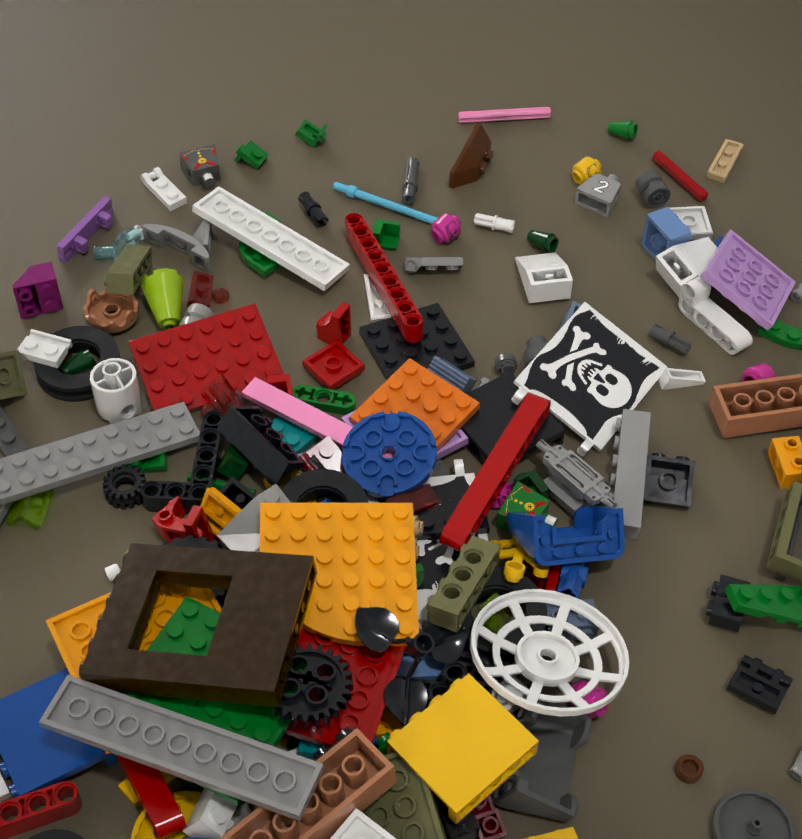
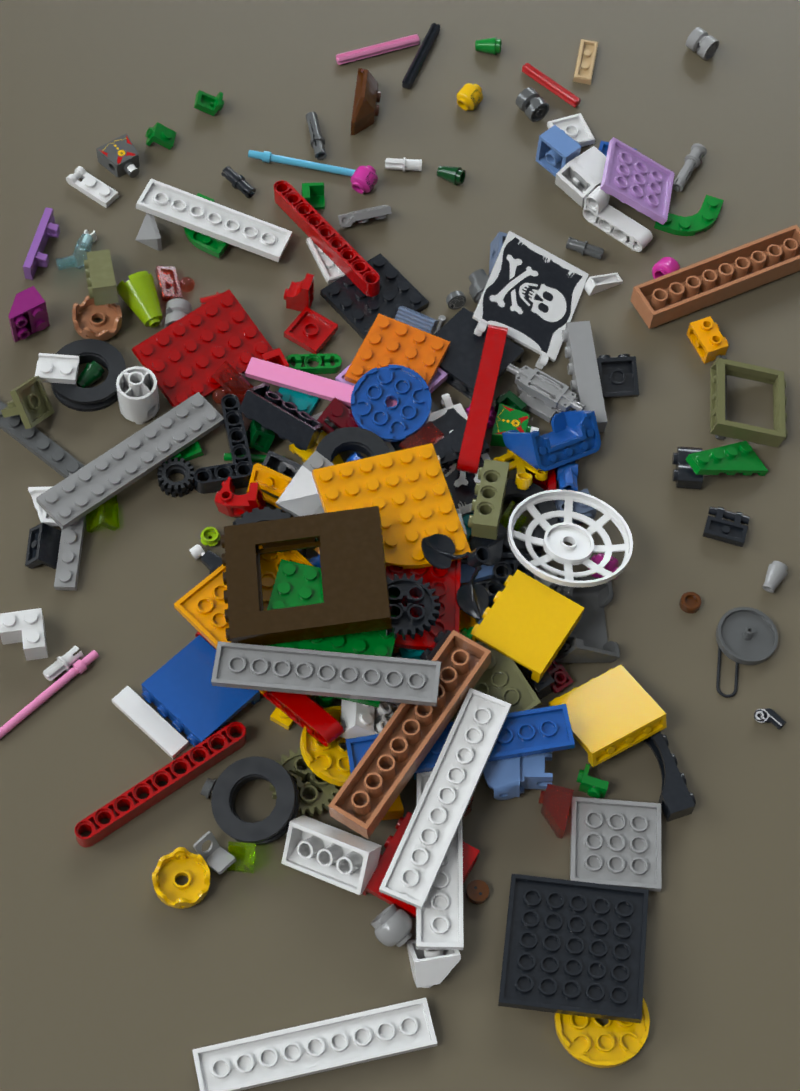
camera: 20 degrees left, 10 degrees up
(163, 235) = (111, 235): light grey slope -> none
(545, 277) = (464, 209): white slope -> none
(547, 127) = (421, 56): none -> black axle
(599, 194) = (487, 118): light grey torso -> none

